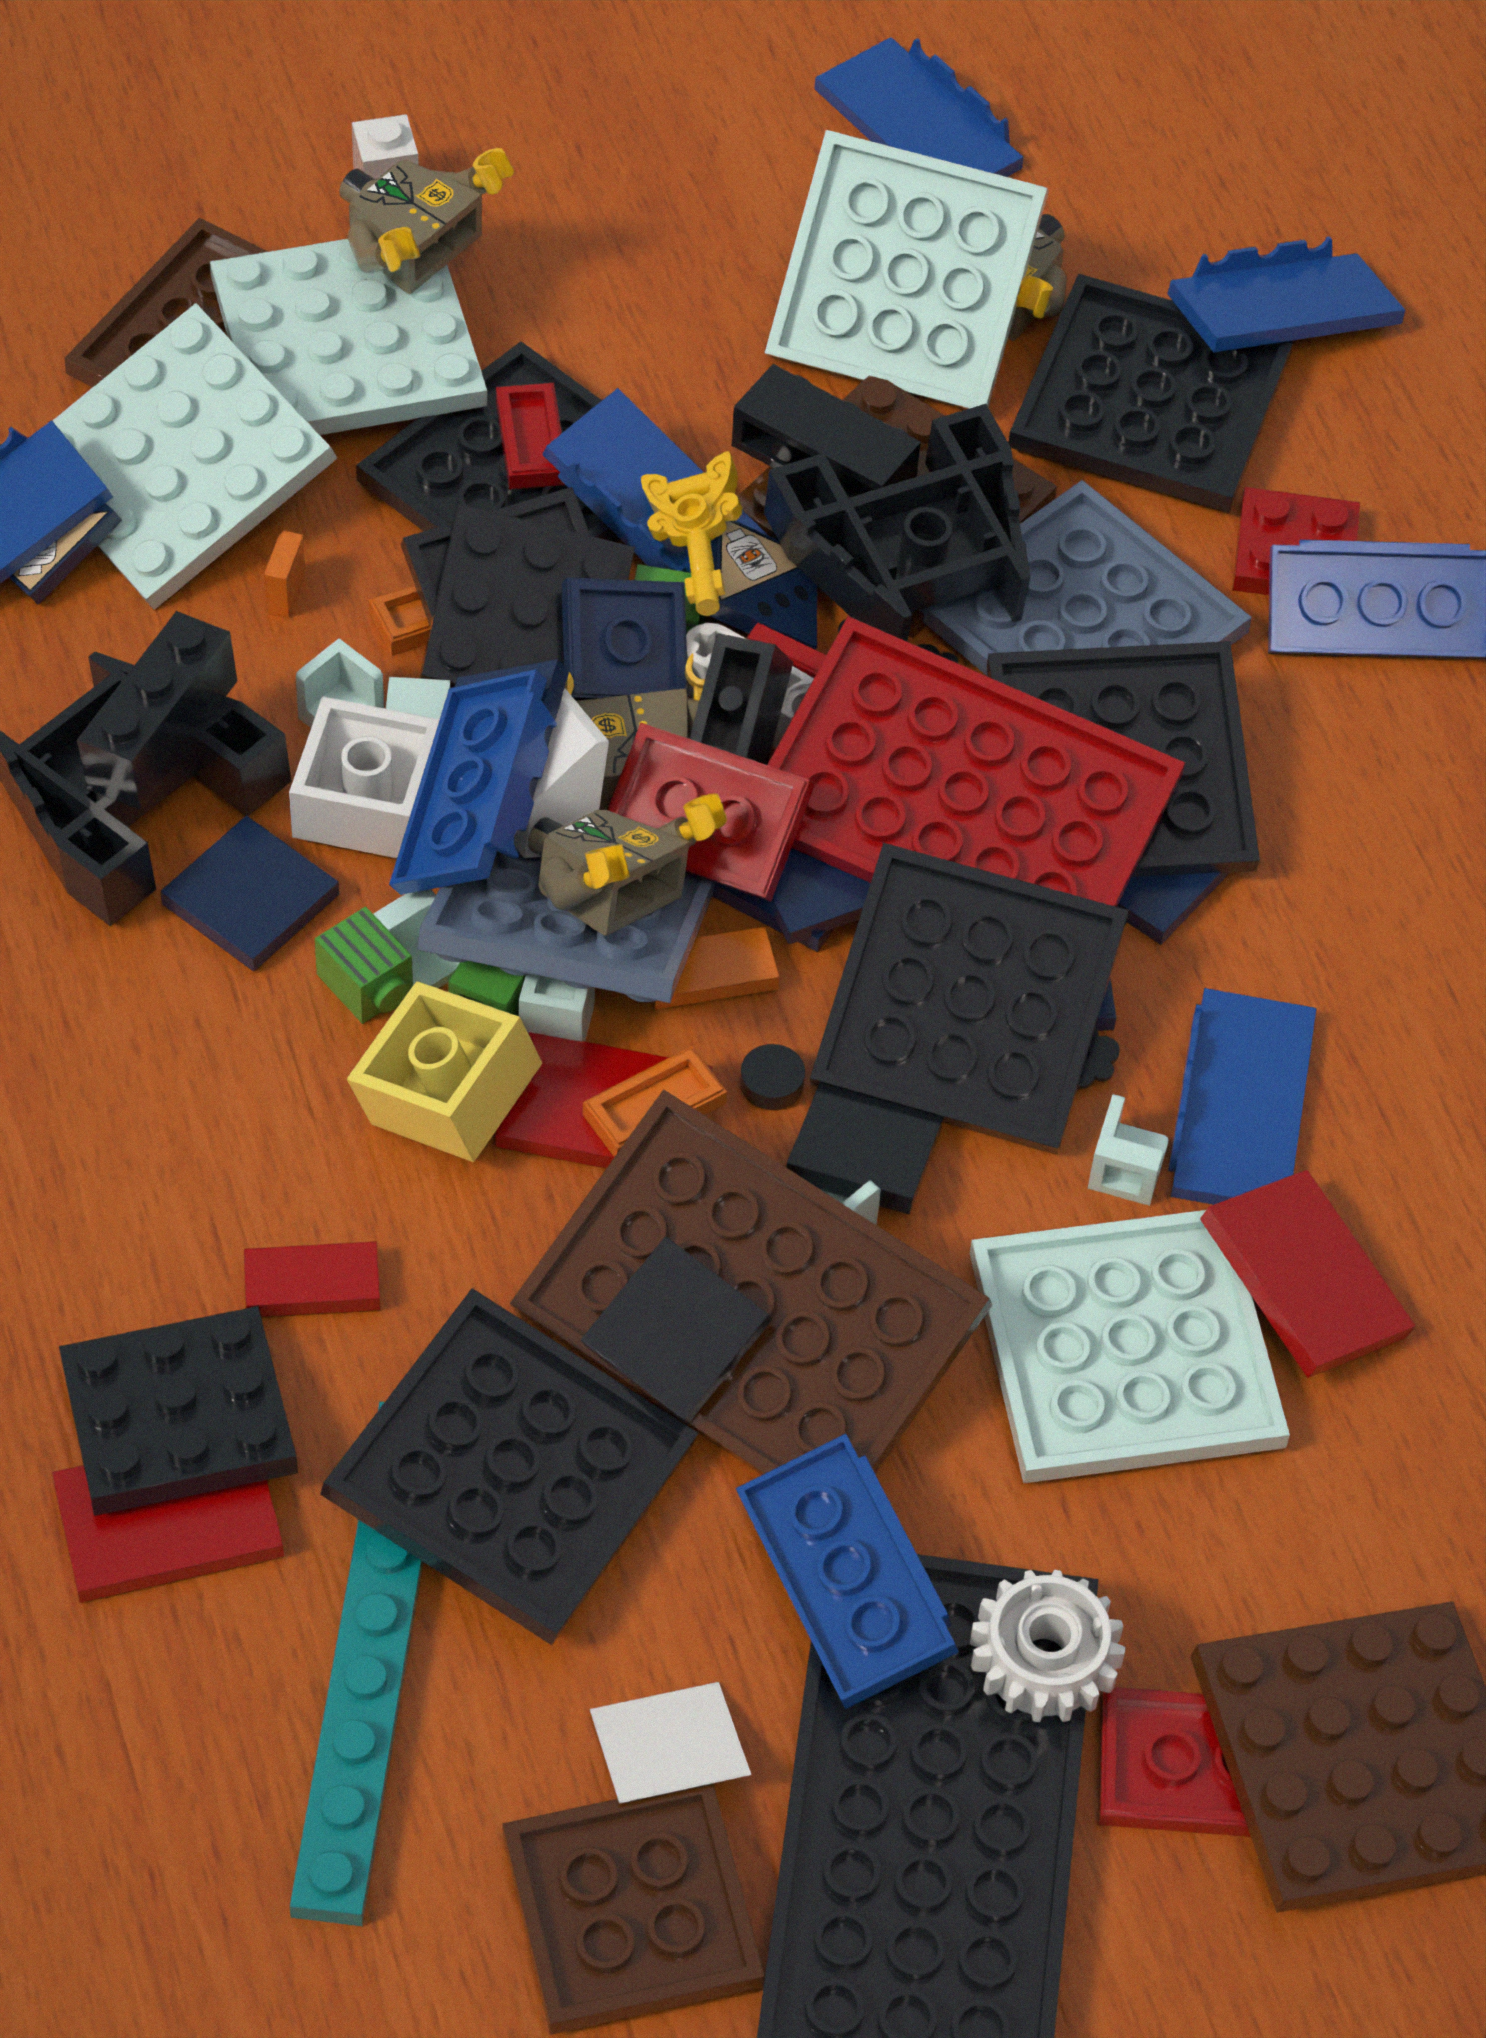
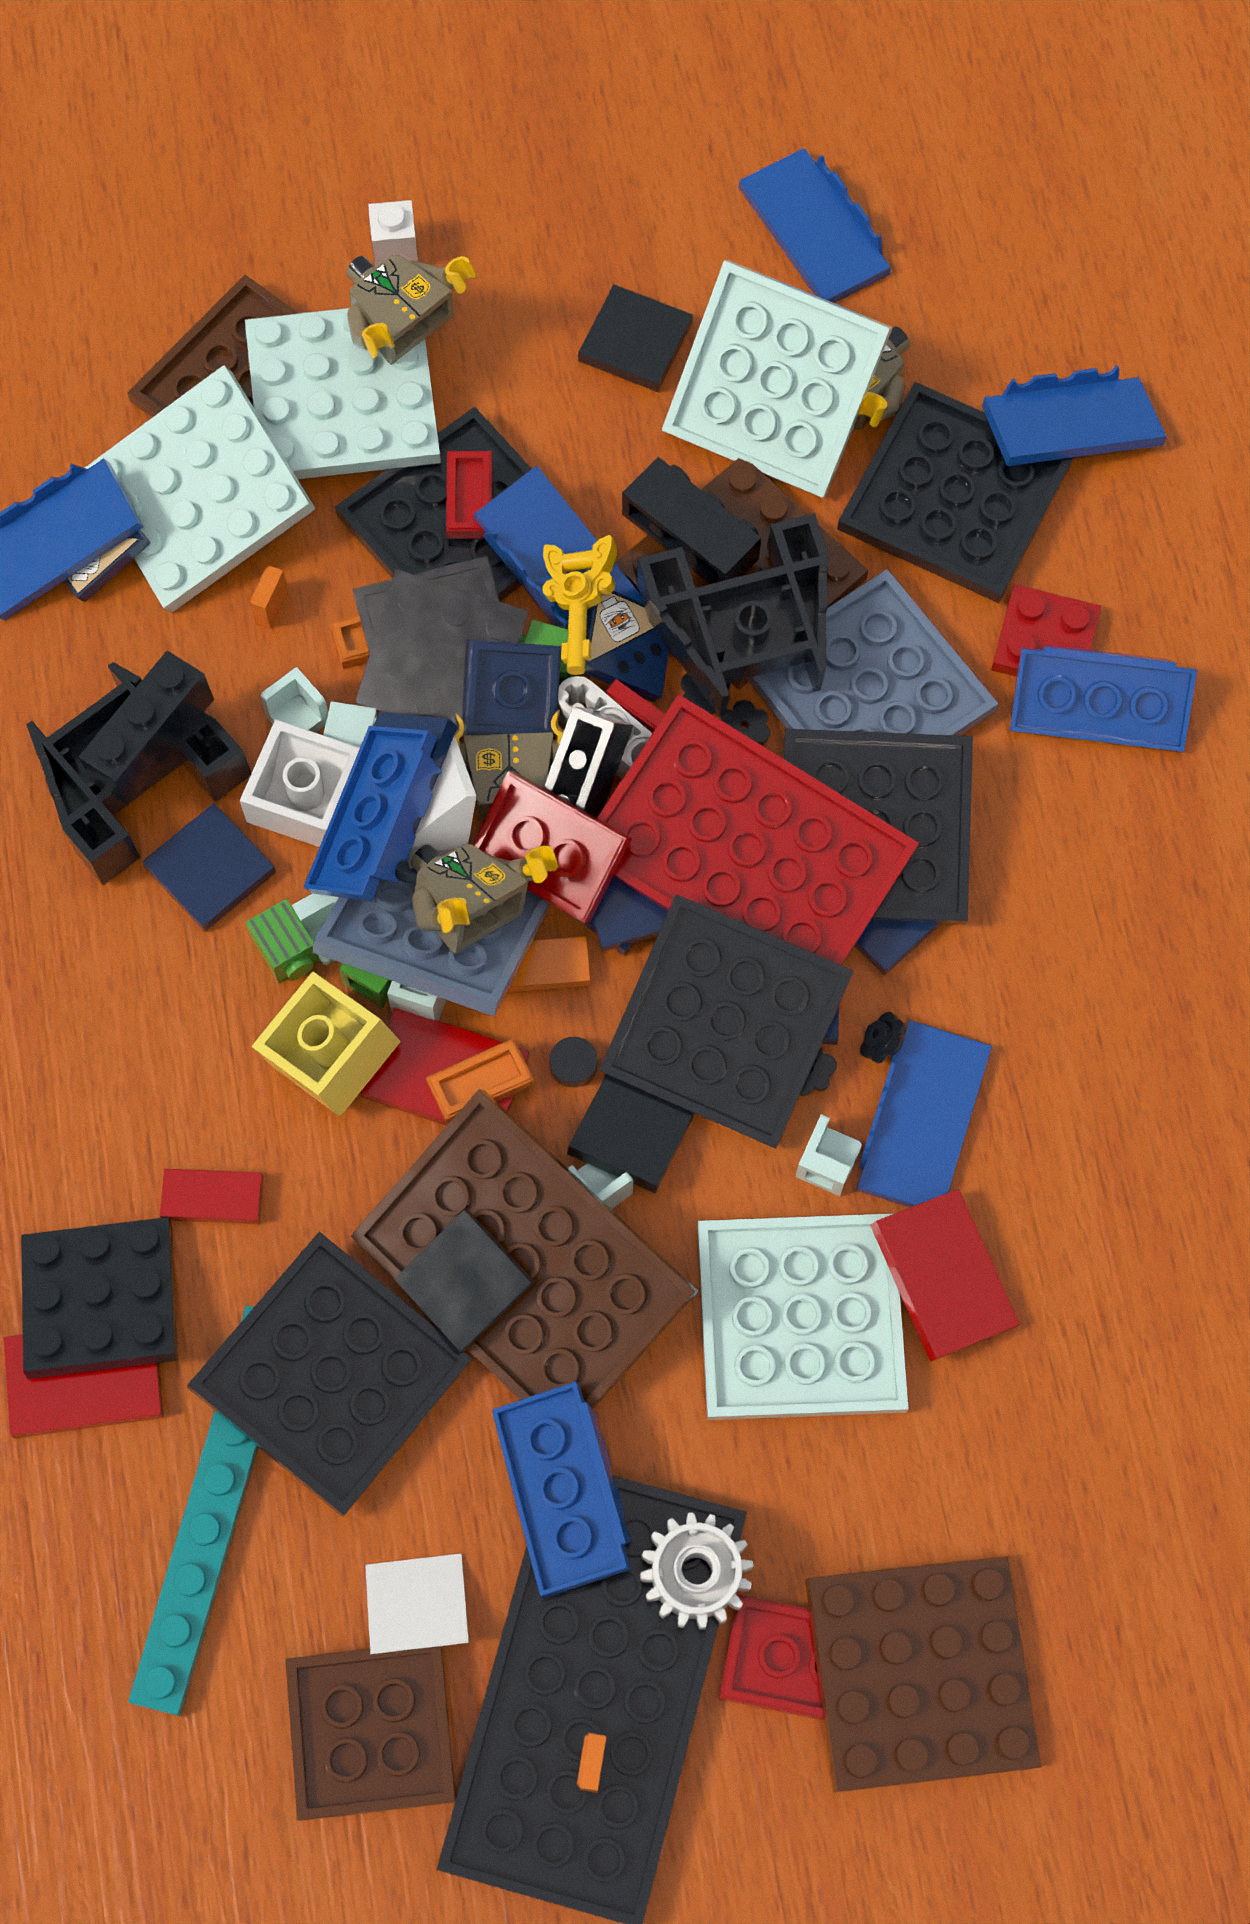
camera: 10 degrees right, 15 degrees up
(712, 257) = (635, 338): none -> black tile
(947, 1894) = (591, 1762): none -> orange tile
(1174, 1008) = (883, 1038): none -> black plant

